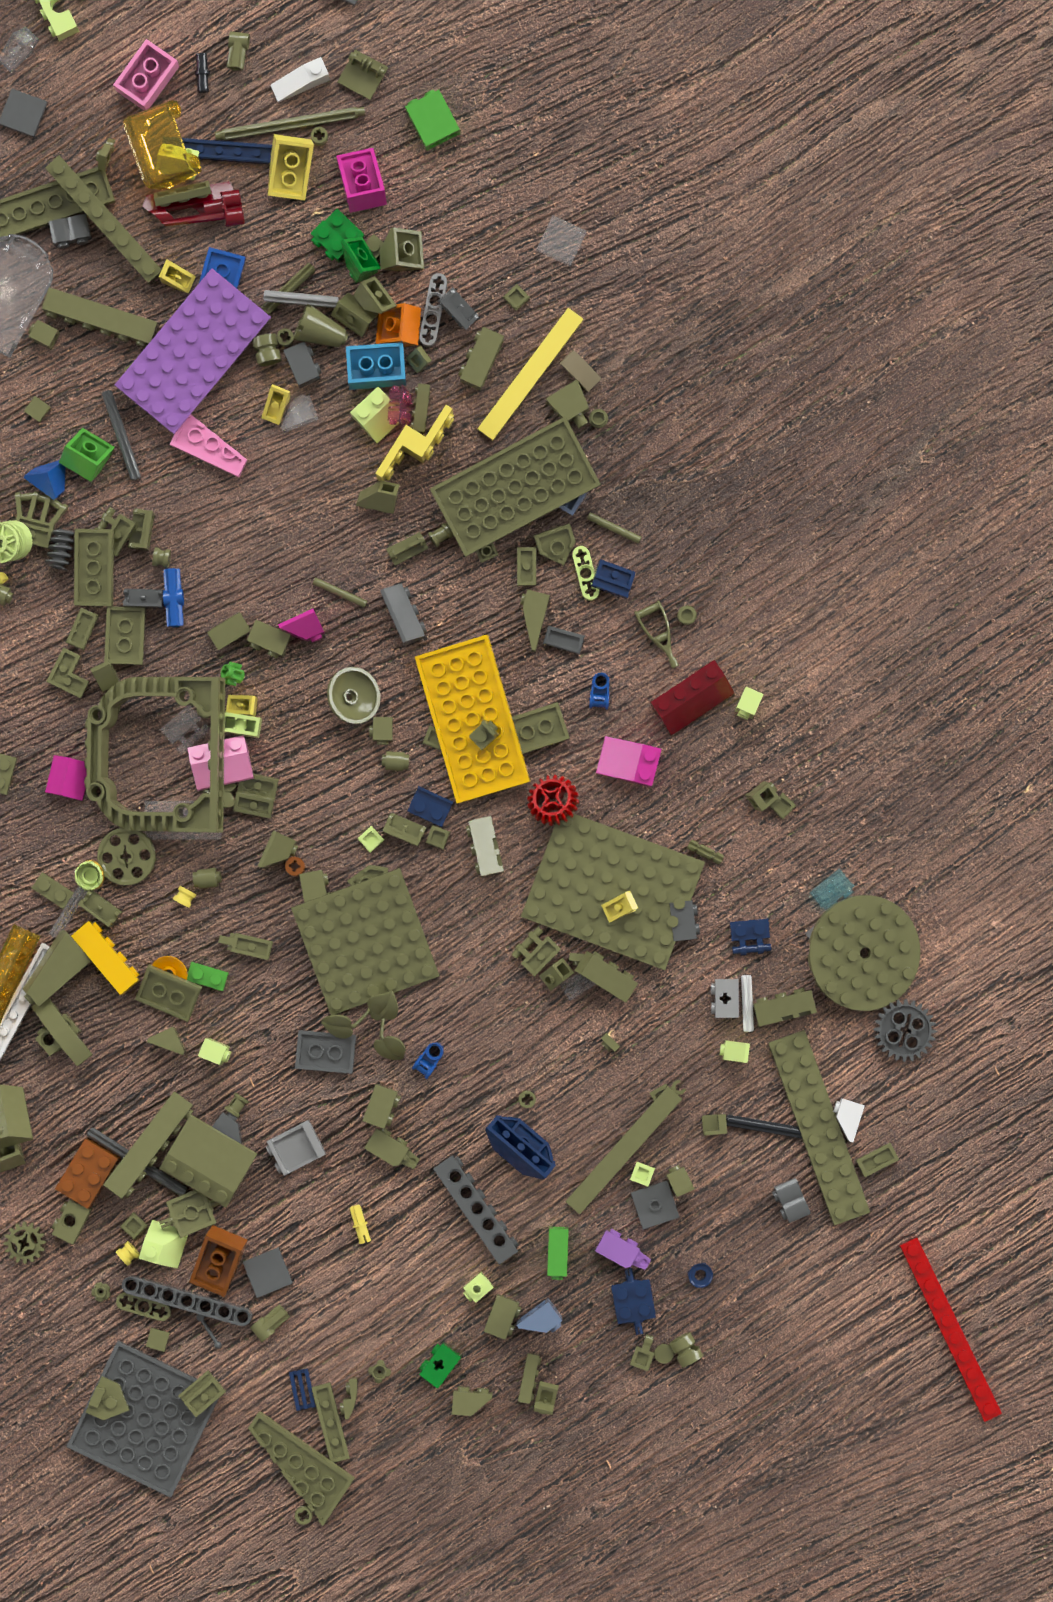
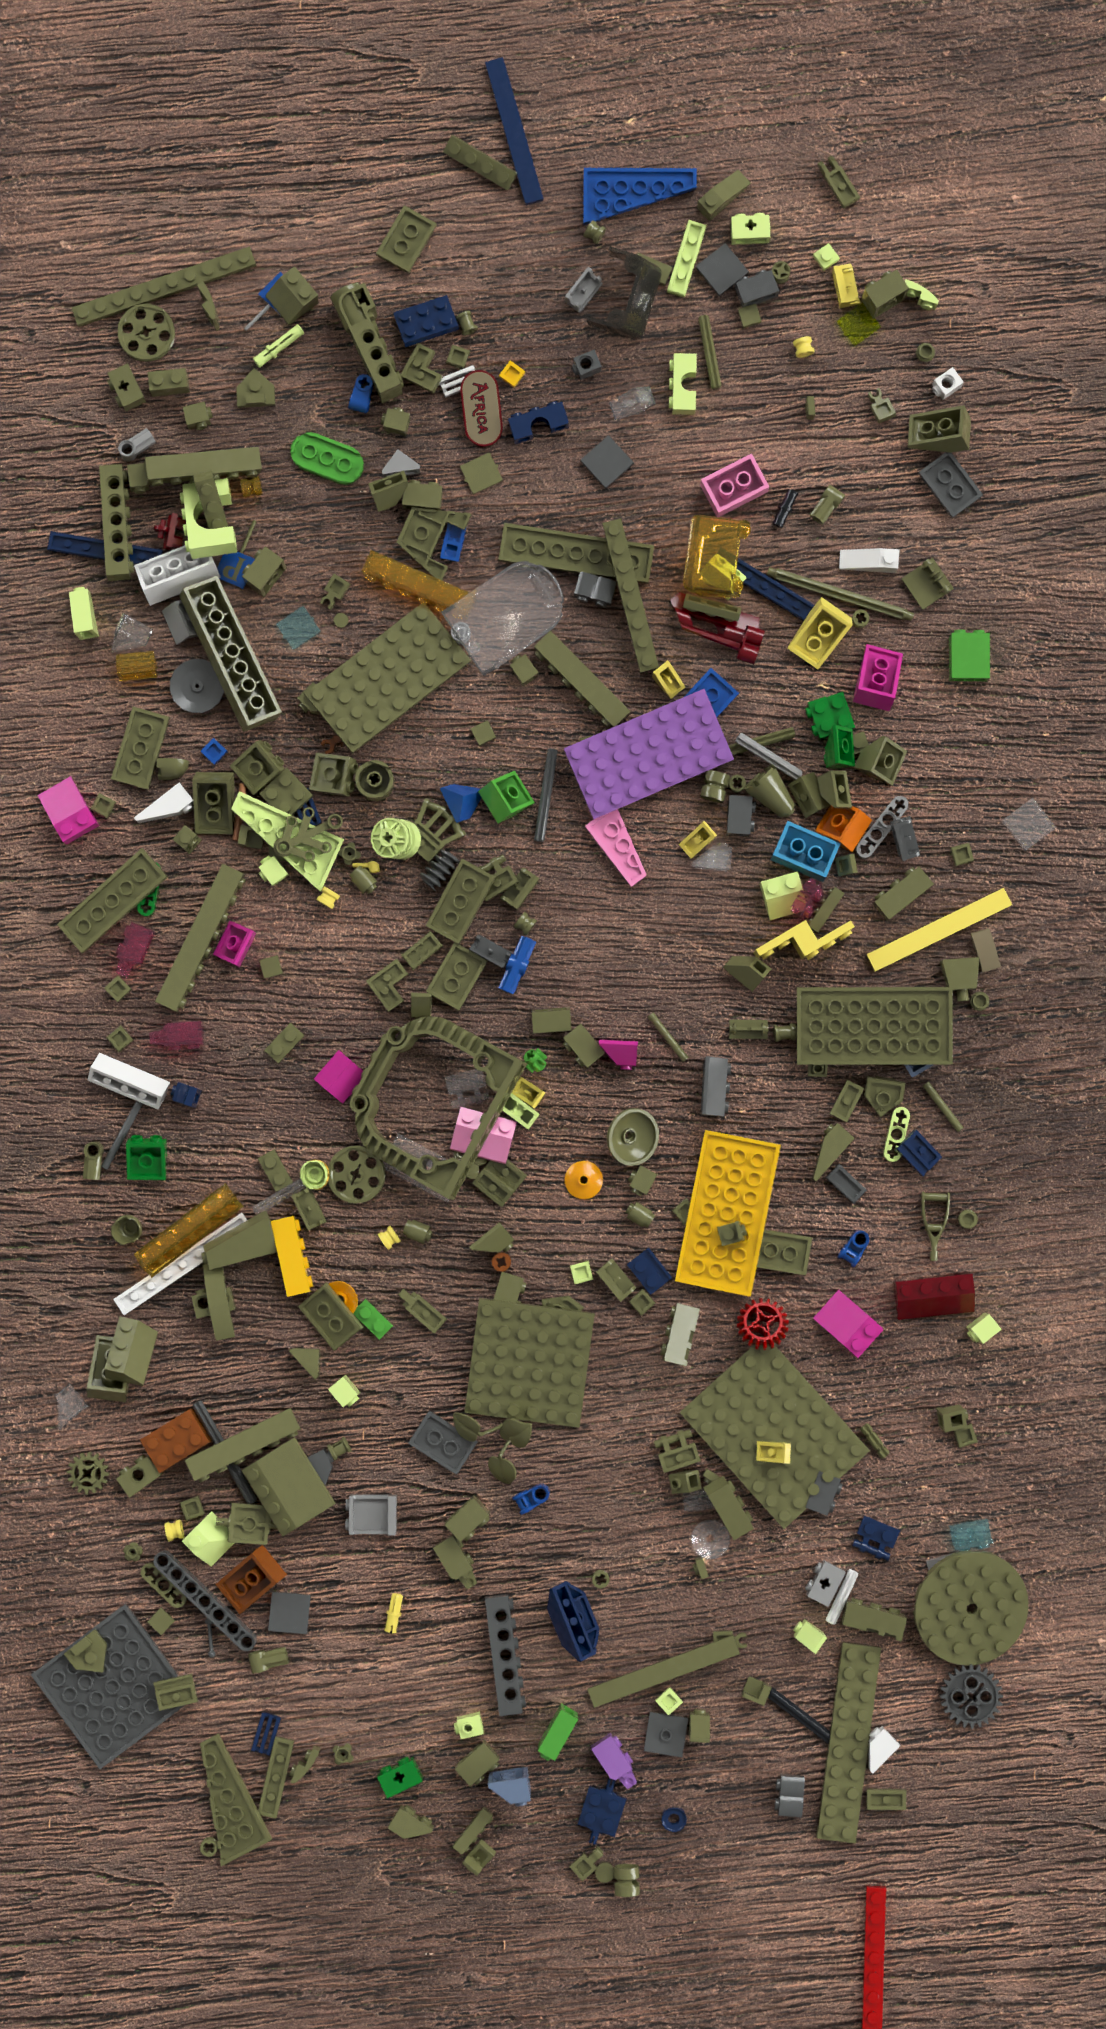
camera: 25 degrees right, 0 degrees up
(104, 155) = (660, 537): olive plate -> none
(337, 764) = (581, 1190): none -> light orange dish
(601, 1003) = (712, 1549): none -> clear dish

